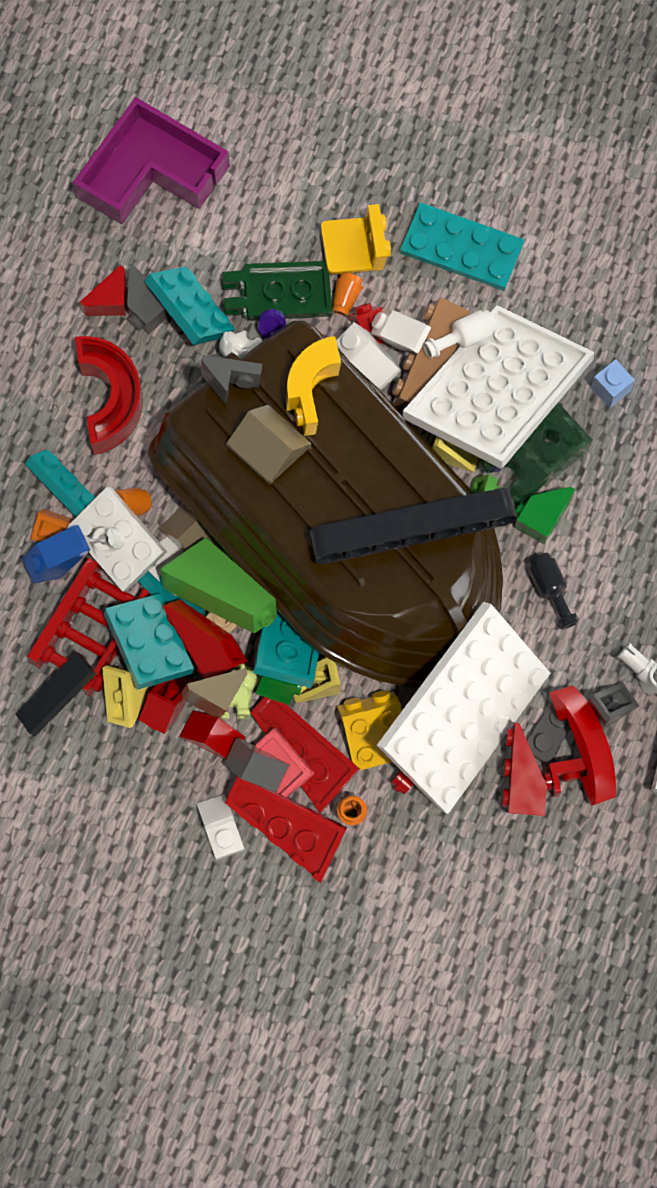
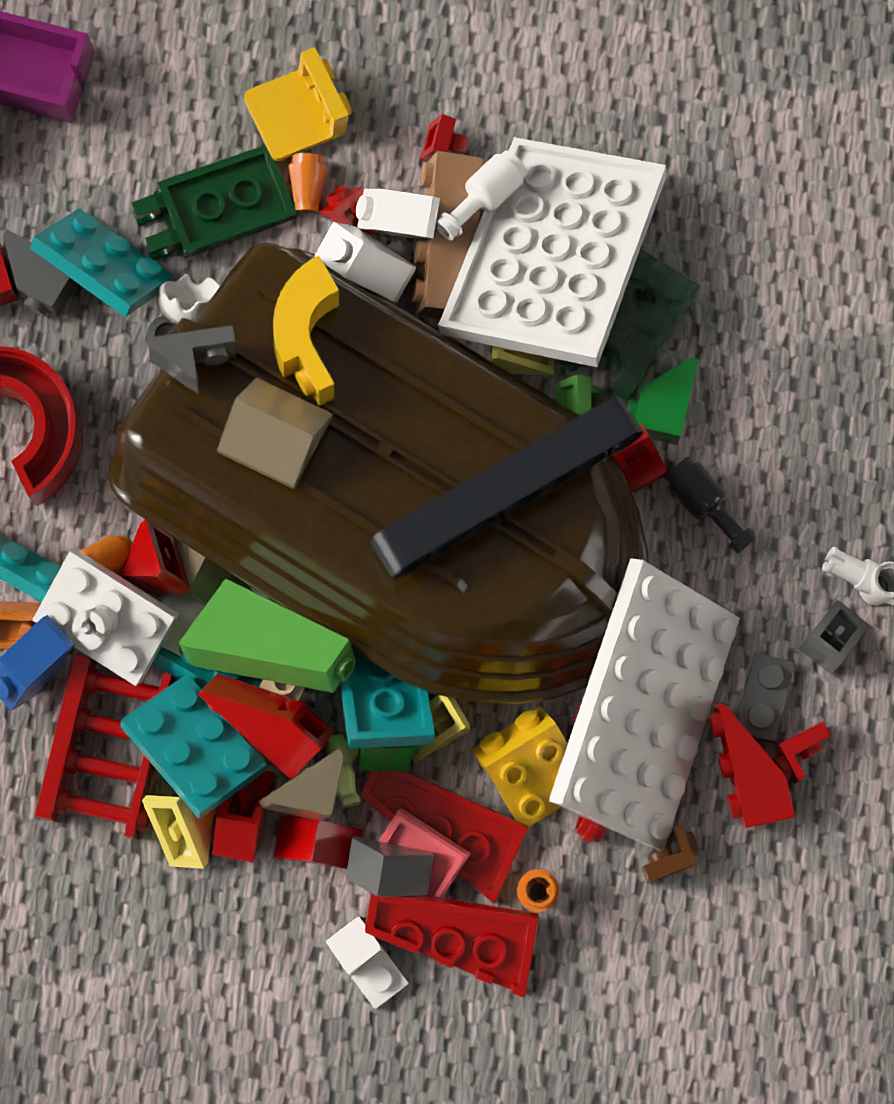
camera: 15 degrees left, 5 degrees up
(56, 694) = (90, 853): black tile -> none
(162, 514) = (155, 562): none -> red slope
(270, 322) = (220, 253): dark purple tile -> none
(448, 291) = (441, 138): none -> red tile
(448, 823) = (666, 863): none -> reddish brown bracket
(462, 246) = (442, 70): teal plate -> none
(513, 543) = (641, 463): none -> red bracket
(591, 741) = (823, 695): red slope -> none
(612, 383) = (701, 199): light blue brick -> none

